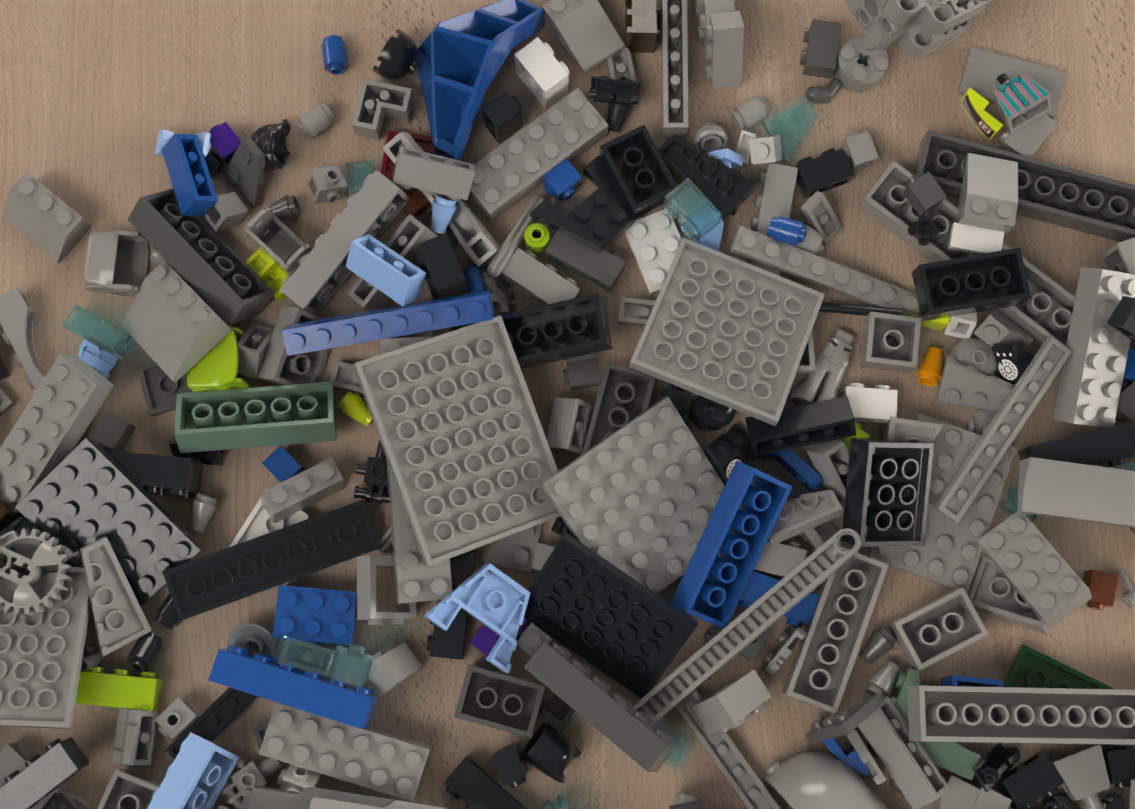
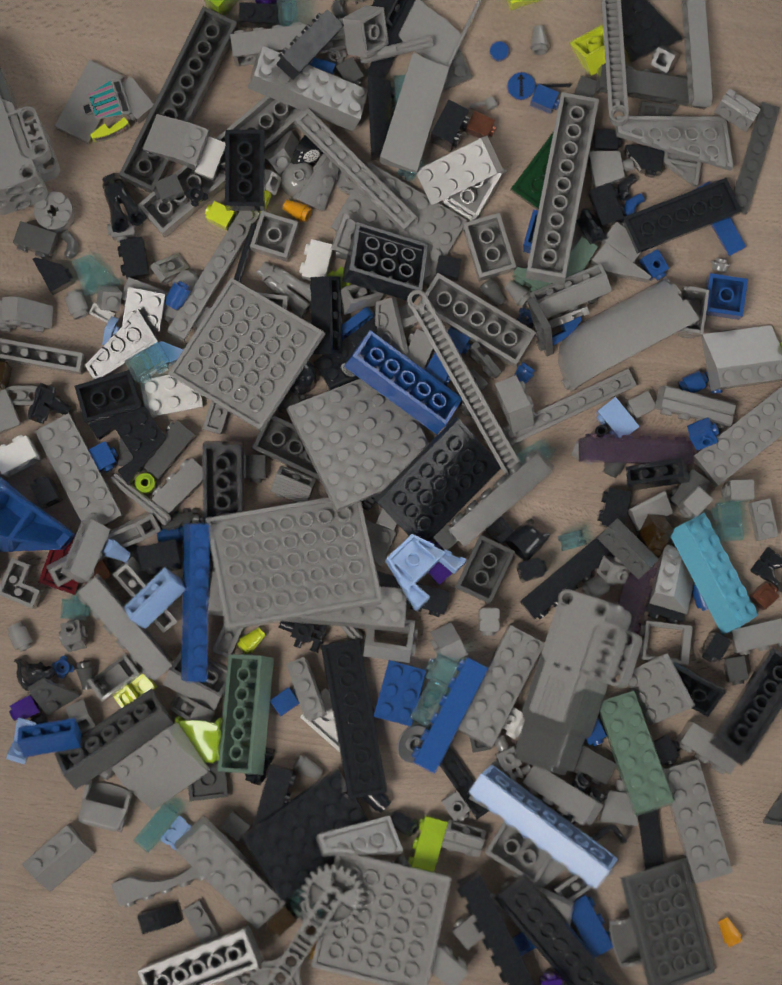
camera: 80 degrees left, 5 degrees up
(286, 173) = (62, 672): none -> blue plate
(430, 718) = (488, 621): none -> light grey brick
(710, 137) = (91, 338): light grey brick -> none
(768, 199) = (149, 302): none -> plate
(776, 708) = (524, 373): none -> blue cone
(780, 79) = (54, 275): none -> black slope
(858, 693) = (522, 314): none -> dark blue plate
(898, 579) = (448, 267): none -> black panel
(901, 135) = (116, 194): none -> black piece
(901, 267) = (219, 216): none -> neon yellow brick
(1091, 546) = (449, 126): none -> black brick

